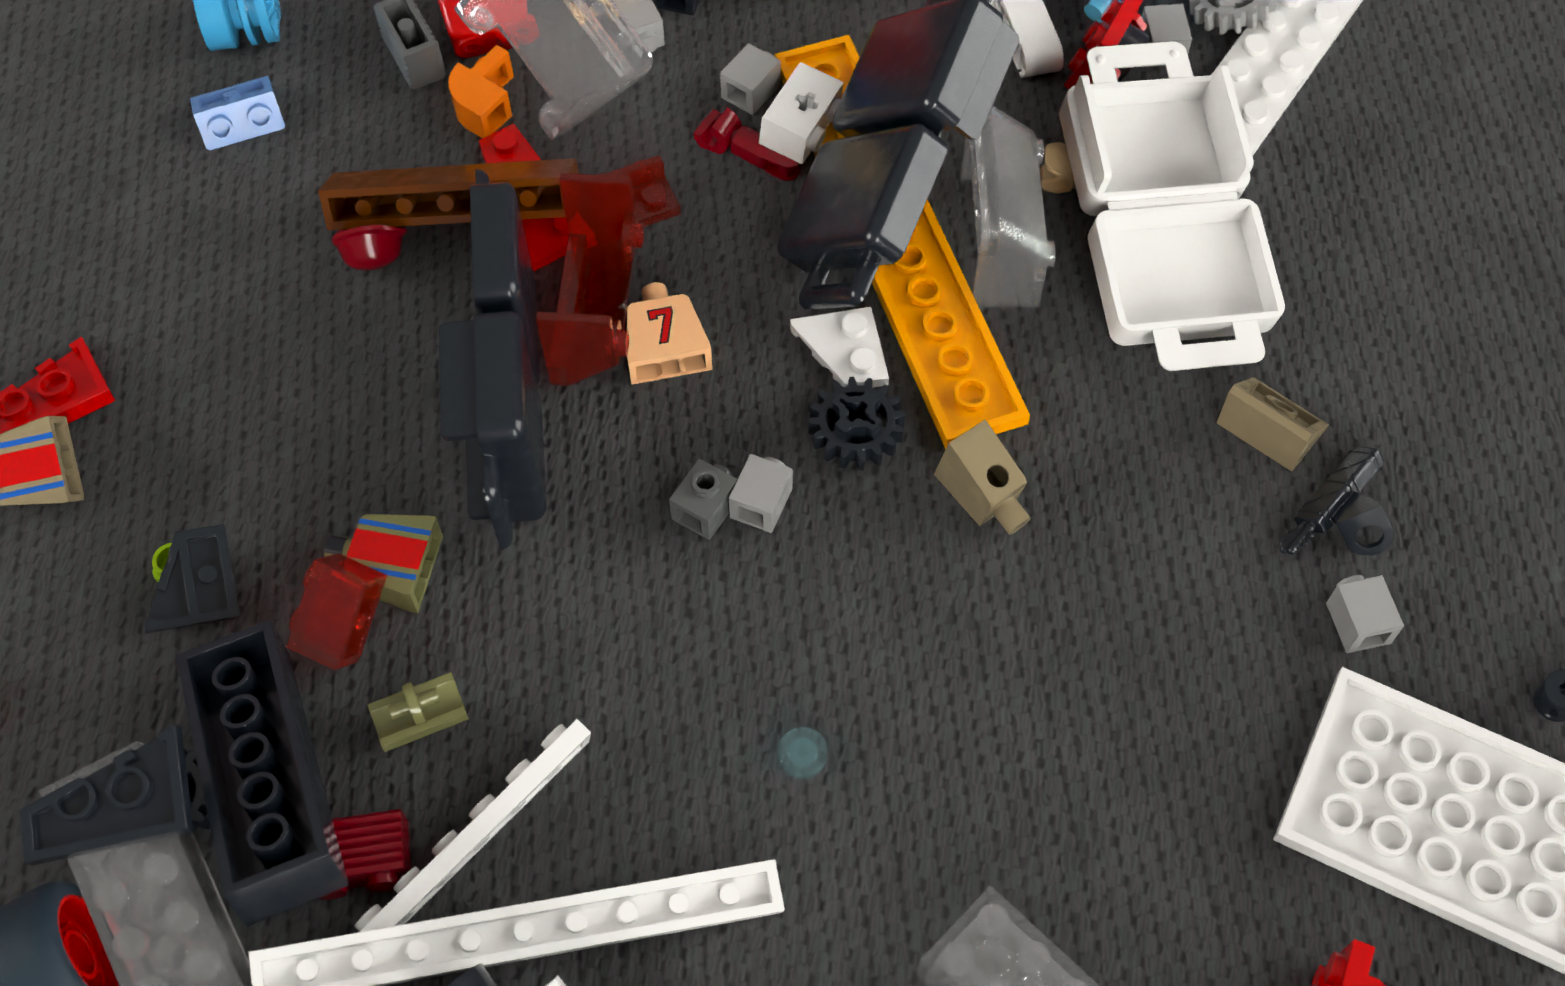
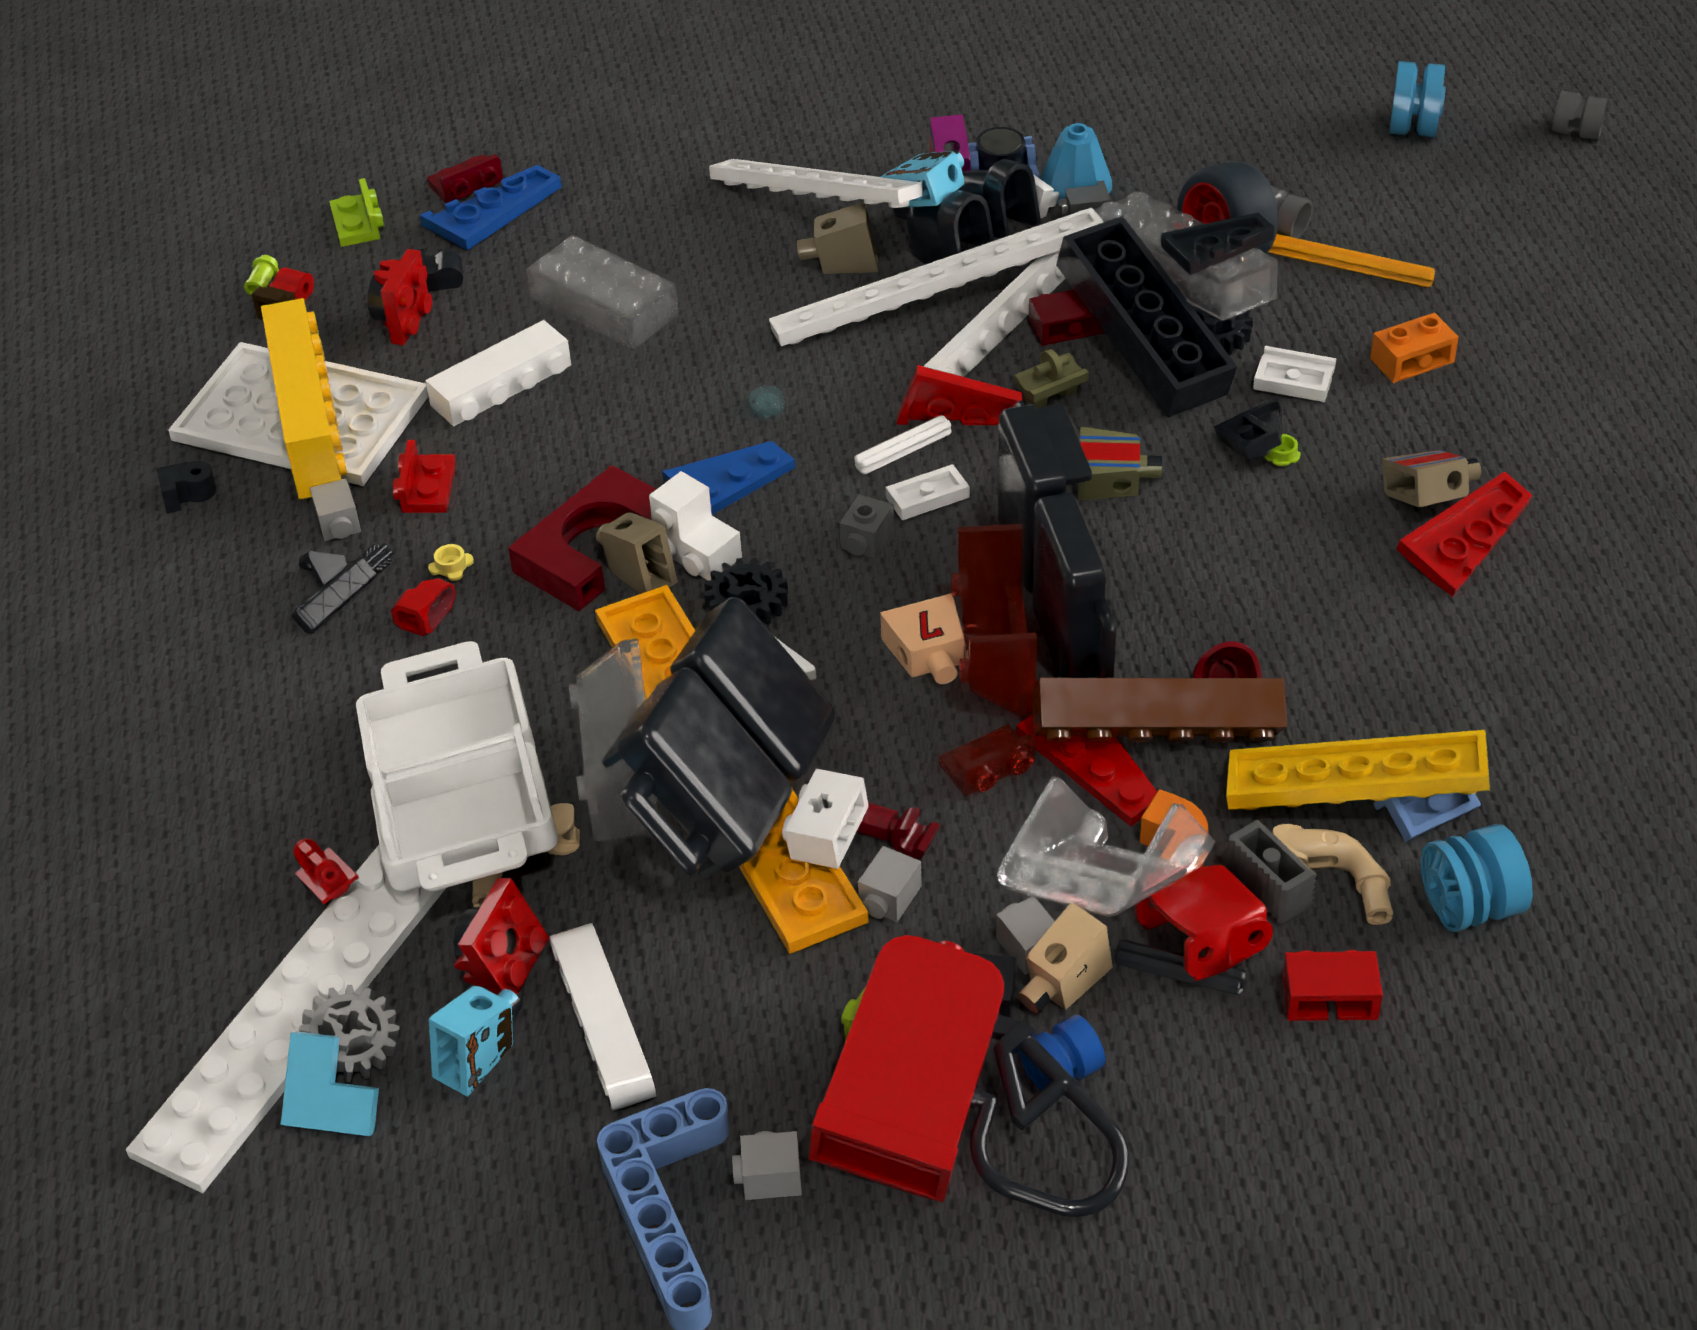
camera: 175 degrees right, 15 degrees down
(99, 693) = (1294, 373): none -> white plate
(287, 107) = (1358, 770): none -> yellow plate
(335, 610) = (1133, 412): clear red brick -> none
(351, 72) = (1340, 851): none -> tan piece
(553, 678) = (955, 397): none -> red wing
(621, 553) = (927, 492): none -> white plate
(635, 645) = (902, 444): none -> white axle
(761, 492) = (819, 535): light grey brick -> none
(863, 621) = (737, 472): none -> blue wing
(914, 500) = (692, 532): none -> white brick
(1014, 581) = (545, 553): none -> dark red arch
(1167, 24) = (431, 982): light grey brick -> none
(1175, 846) = (498, 373): none -> white brick
(1207, 513) = (450, 562): none -> light yellow plate
(1231, 452) = (424, 606): none -> red rock
(1257, 663) = (424, 481): none -> red bracket
(1270, 422) = (379, 628): dark tan slope -> none
(1287, 154) = (322, 870): none -> red hinge
(1452, 762) = (303, 395): none -> yellow brick

